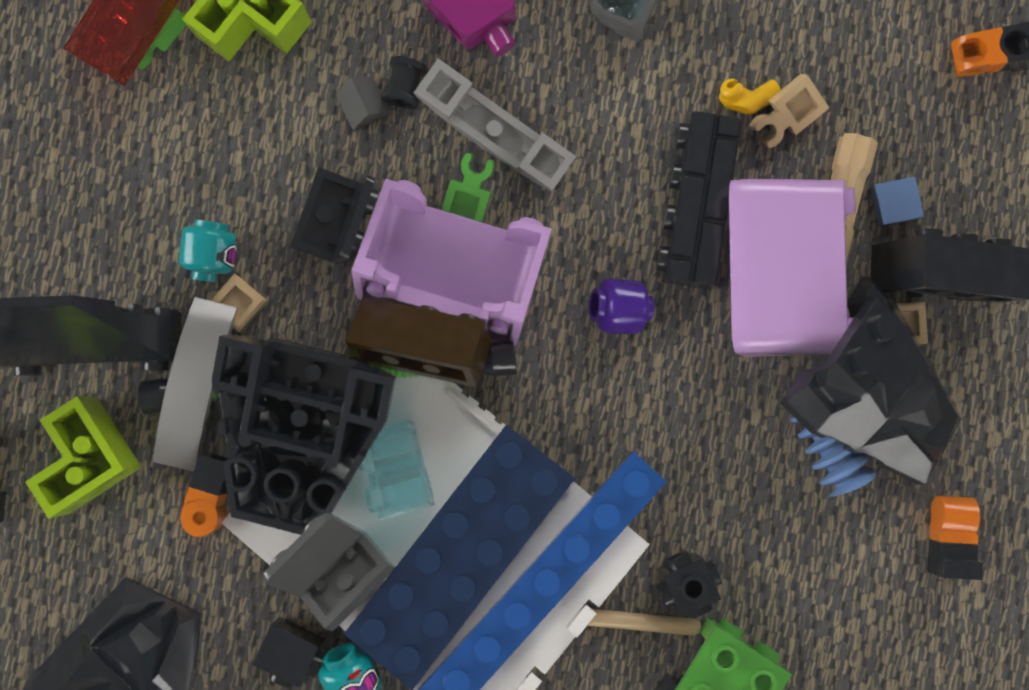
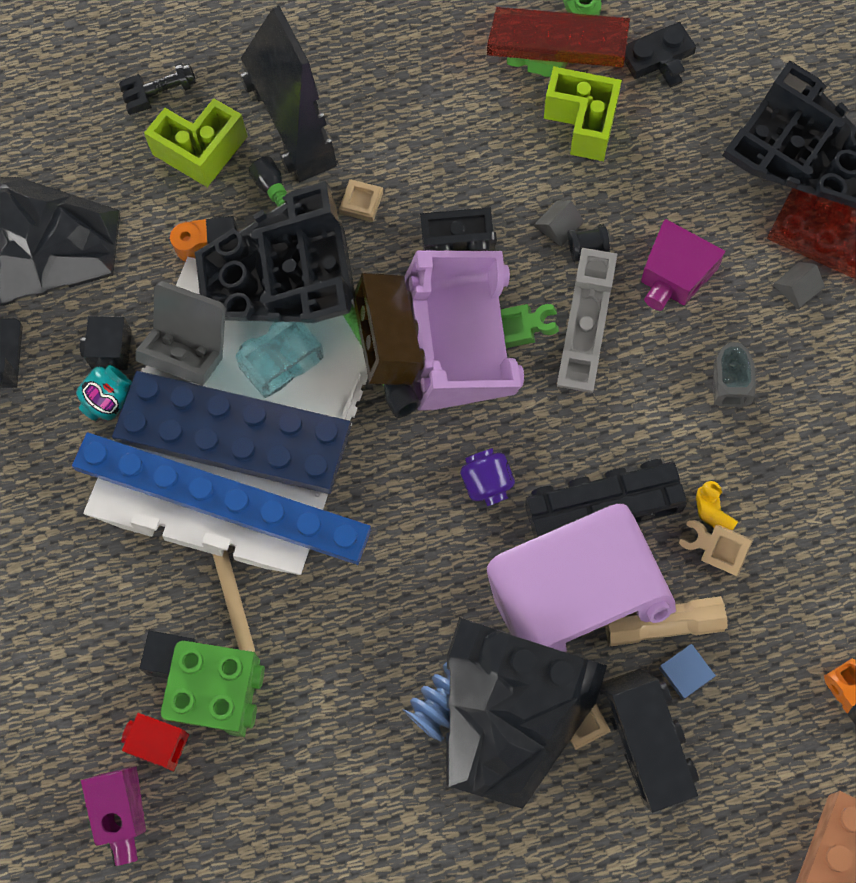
camera: 75 degrees right, 15 degrees down
(189, 385) = (266, 190): light grey slope -> none
(207, 250) = (391, 160): teal head -> none
(677, 573) = (289, 633): black brick -> none
(954, 538) = (414, 840): leg -> none

